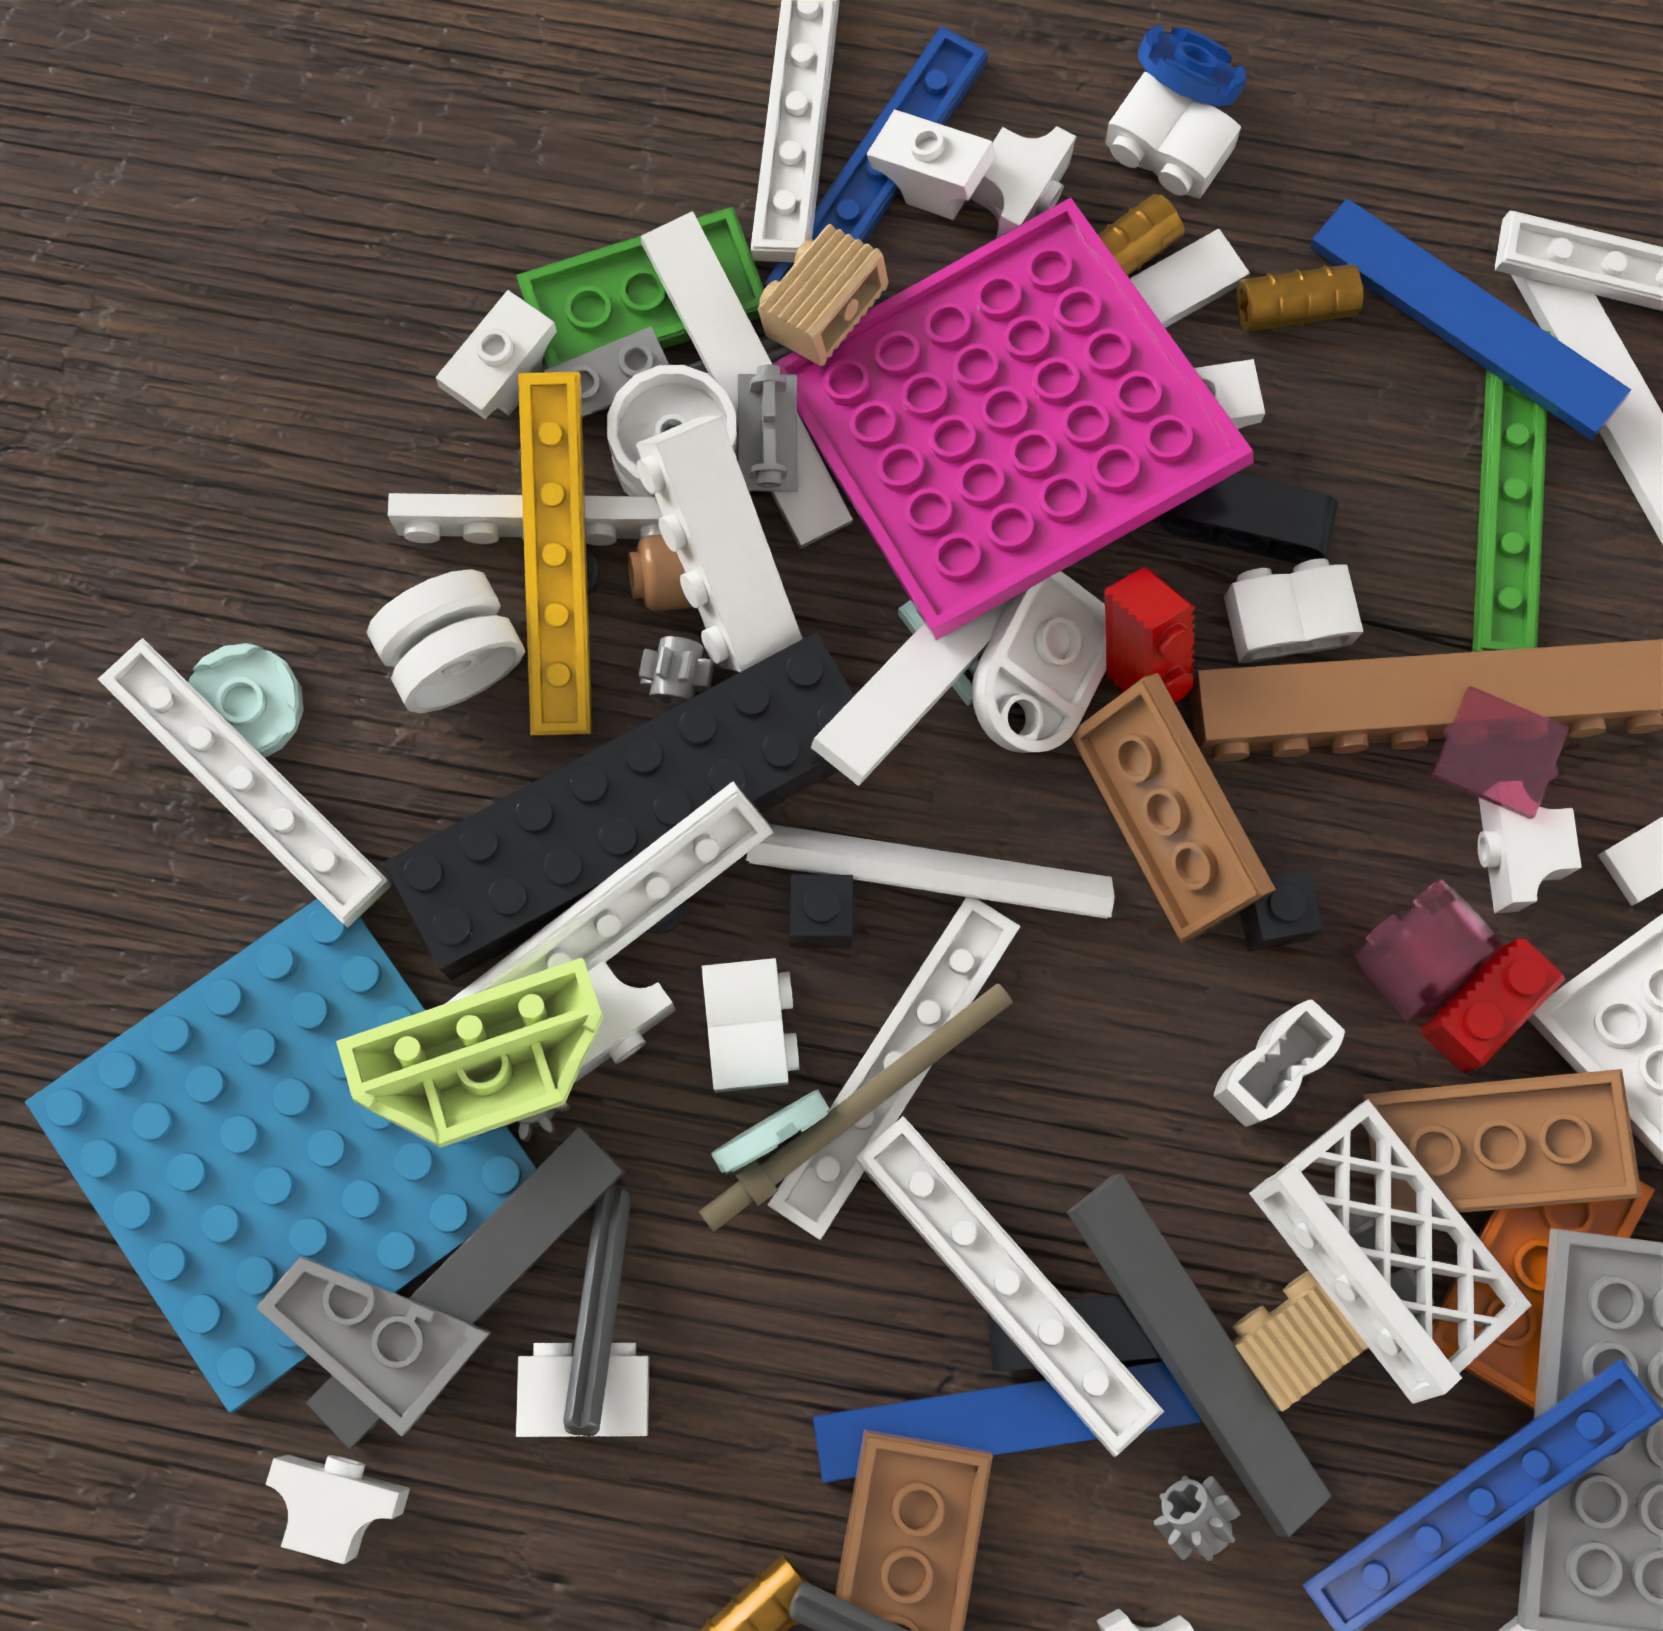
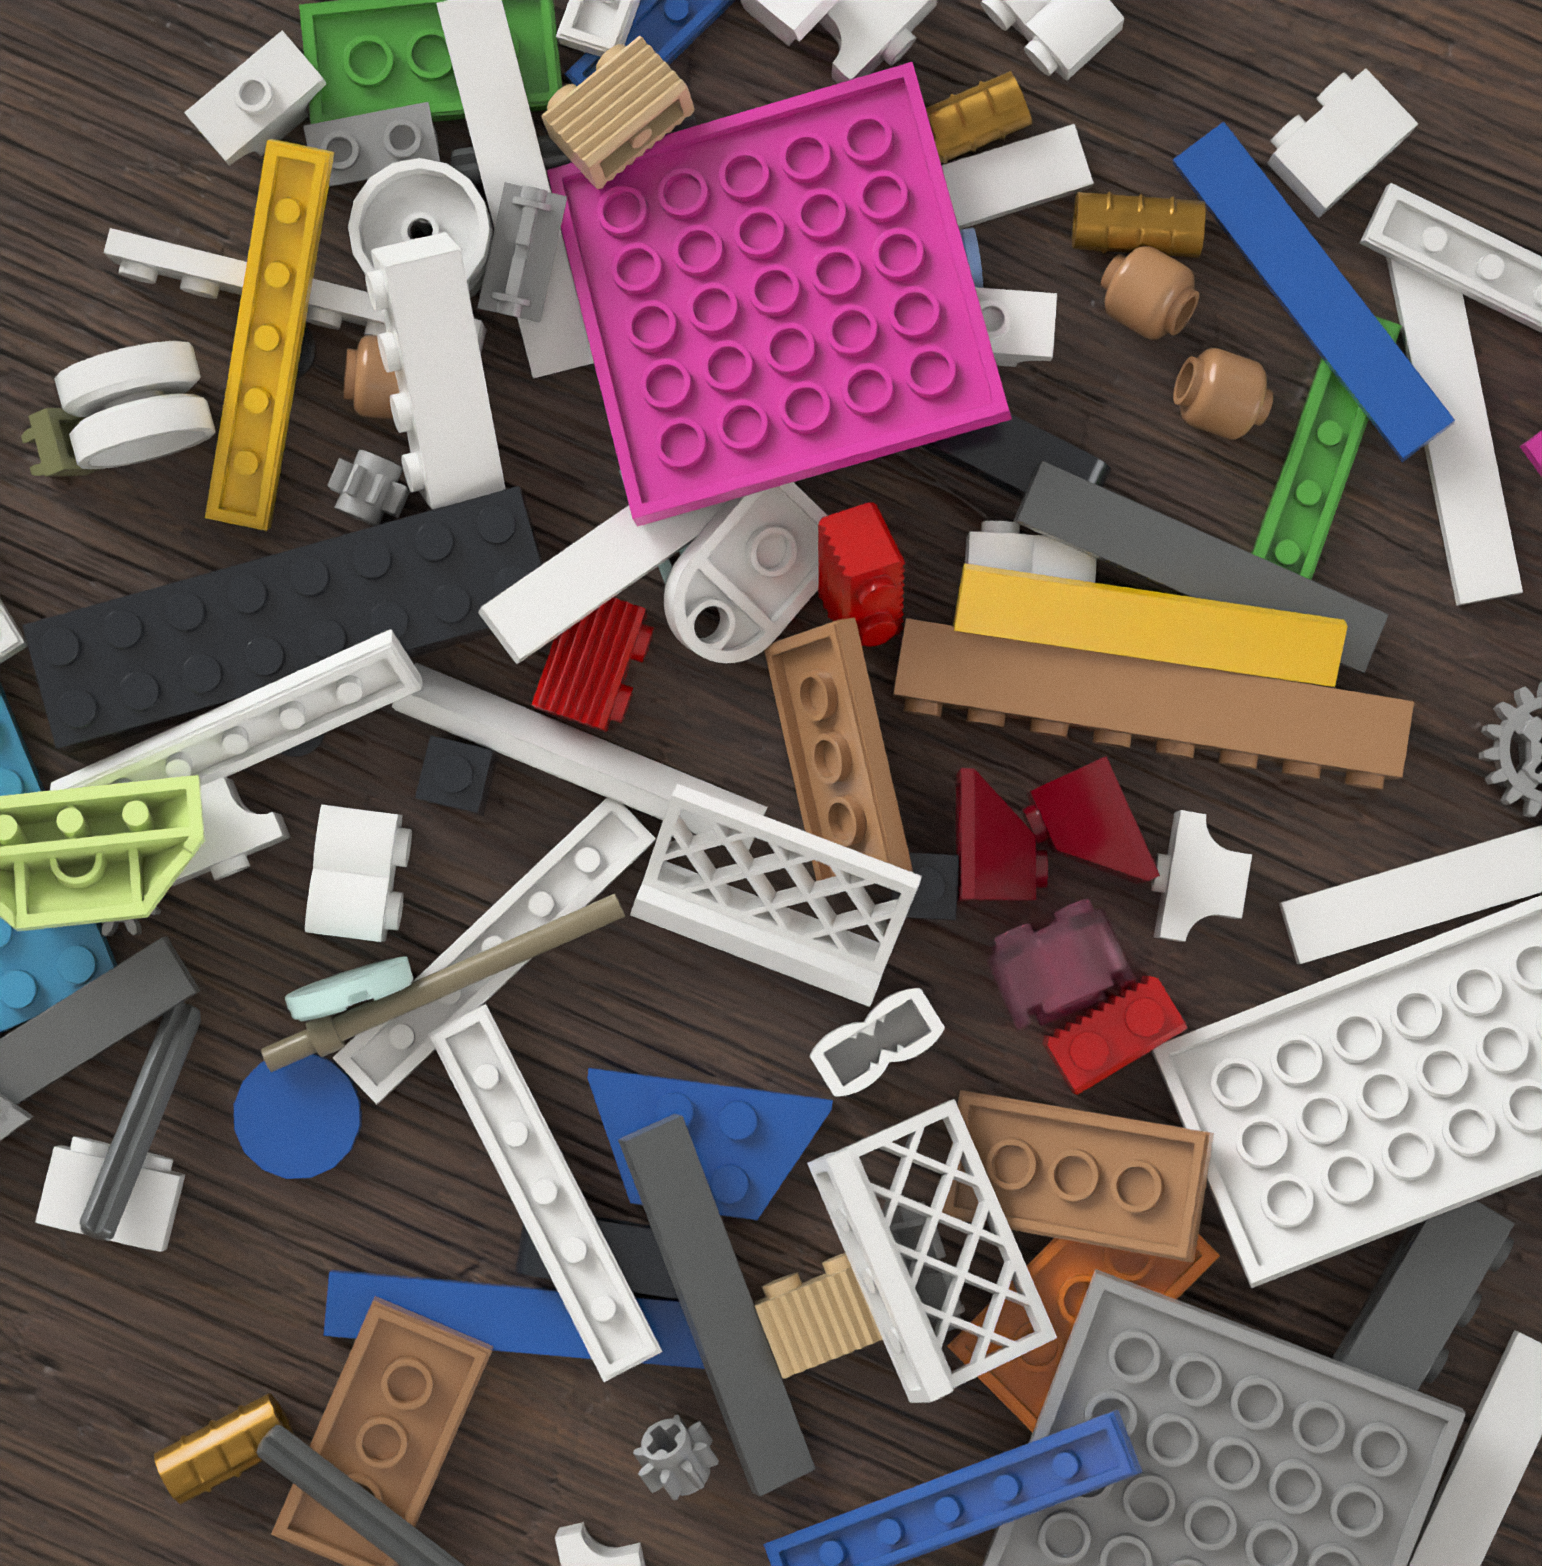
camera: 20 degrees right, 10 degrees up
(381, 699) = (51, 434): none -> olive tile
(745, 1272) = (298, 1117): none -> blue tile
(918, 780) = (590, 665): none -> red brick
(1142, 982) = (763, 926): none -> white fence
(1178, 1182) = (739, 1133): none -> blue wing
(1327, 350) = (1149, 292): none -> medium nougat head
(1334, 848) = (993, 846): none -> dark red slope
(1416, 419) = (1222, 393): none -> medium nougat head
(1419, 624) = (1149, 625): none -> yellow tile
(1423, 814) = (1090, 822): none -> dark red slope
(1446, 567) = (1184, 557): none -> dark grey tile
(1452, 192) = (1340, 141): none -> white brick
(1500, 752) = (1193, 779): clear pink piece -> none

